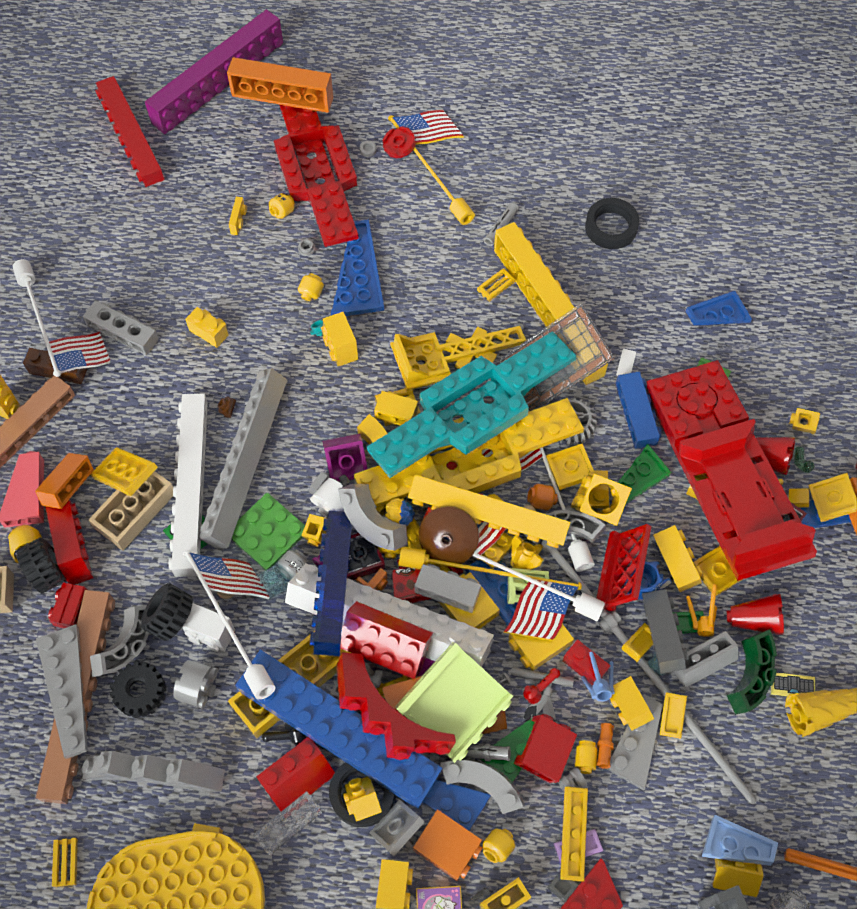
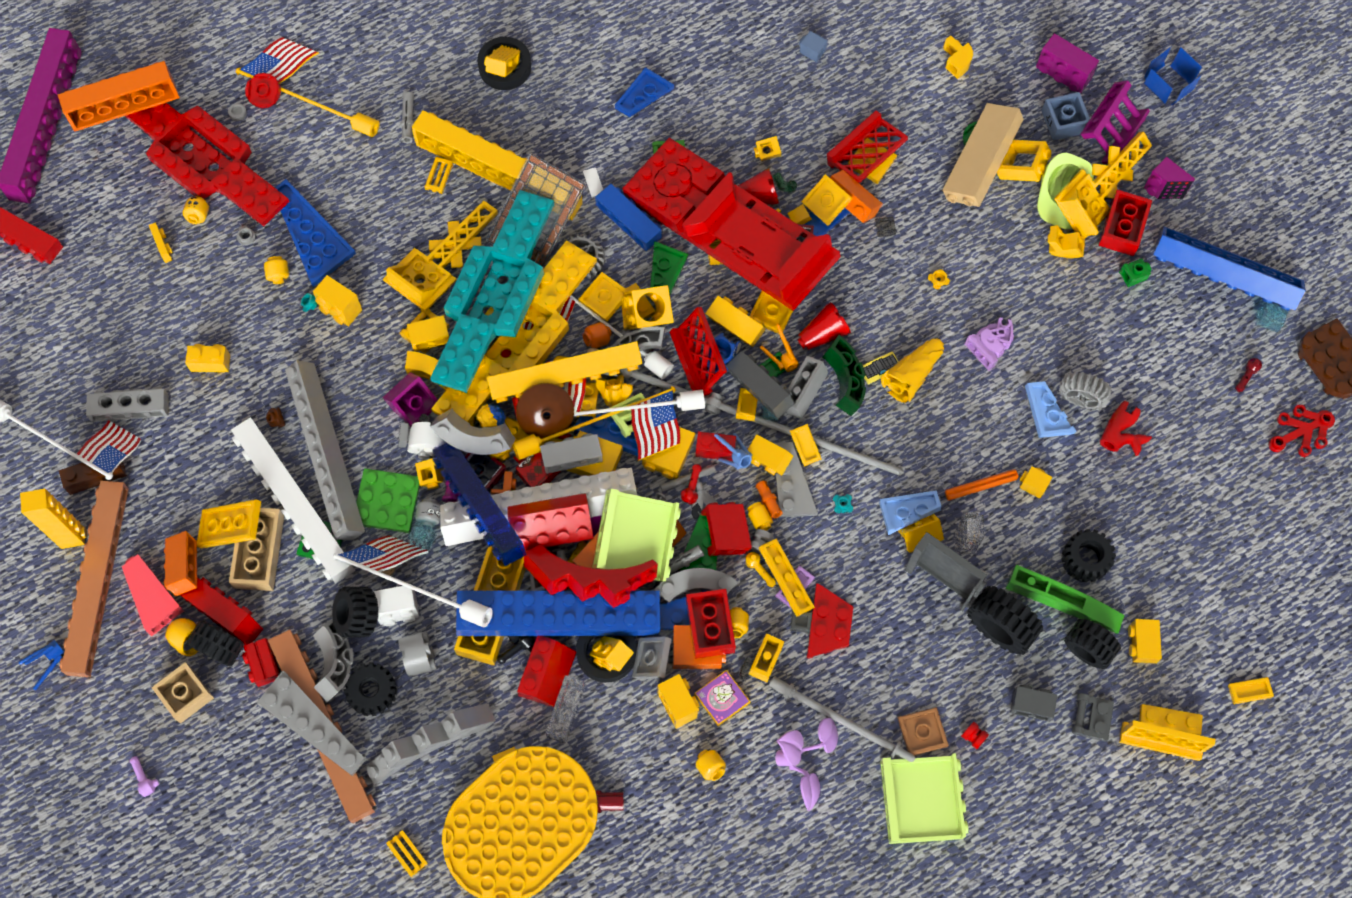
camera: 35 degrees left, 5 degrees up
(470, 832) = (710, 623): none -> red brick
(553, 795) = (753, 561): none -> yellow piece
(610, 219) = (502, 61): none -> yellow brick
(669, 796) = (839, 508): none -> teal plate

